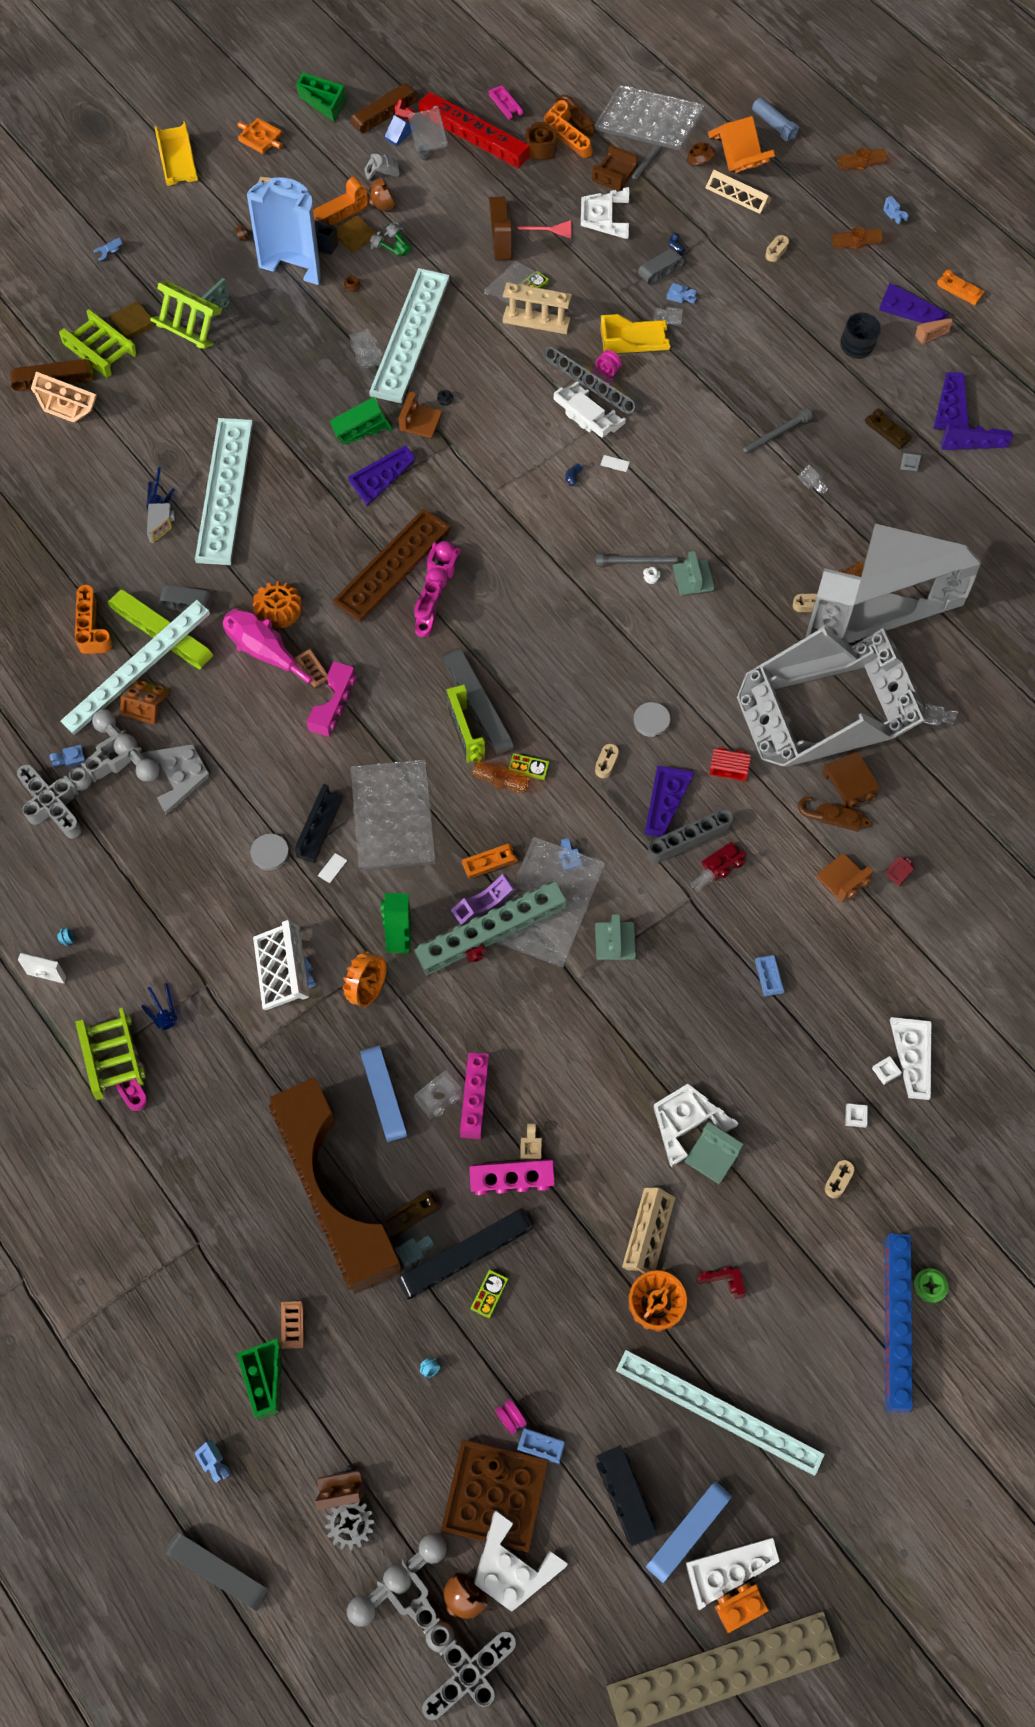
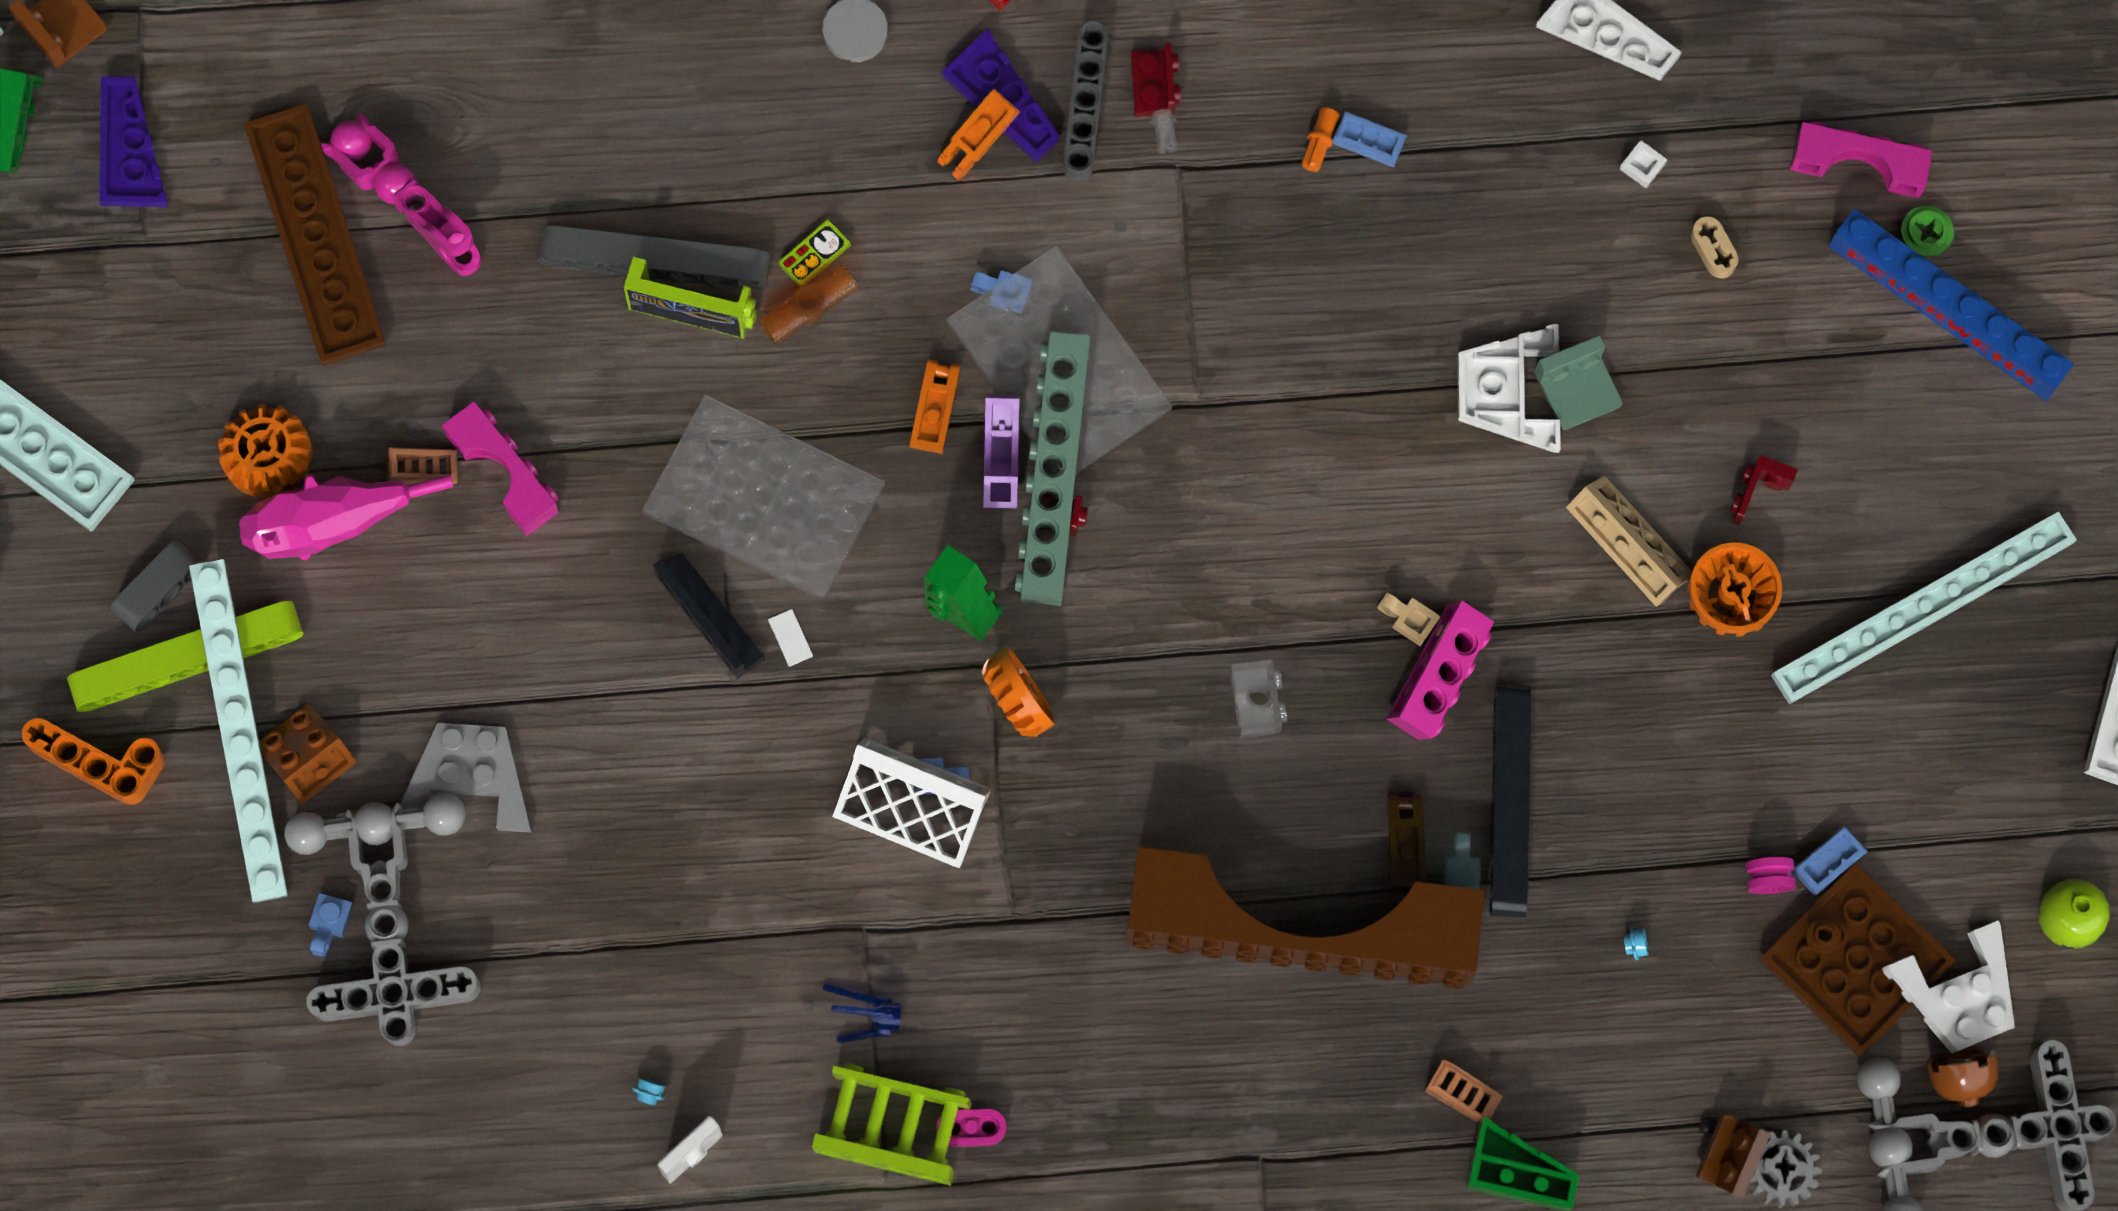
camera: 60 degrees left, 10 degrees up
(269, 852) = (704, 713): light grey tile -> none
(383, 1093) = (1204, 773): medium blue beam -> none
(474, 1096) = (1291, 649): dark pink brick -> none
(489, 1294) = (1583, 804): tile -> none
(600, 1607) = (2074, 913): none -> lime cylinder
(609, 761) = (875, 142): tan beam -> none
(615, 940) = (1178, 311): sand green bracket -> none
(625, 1496) = (1960, 793): black wedge -> none
(637, 798) = (979, 132): none -> orange hinge
(689, 1531) = (2050, 742): medium blue beam -> none
(751, 952) = (1320, 139): none -> orange axle
(886, 1070) = (1606, 81): white plate -> none
(933, 1200) = (1900, 165): none -> dark pink arch

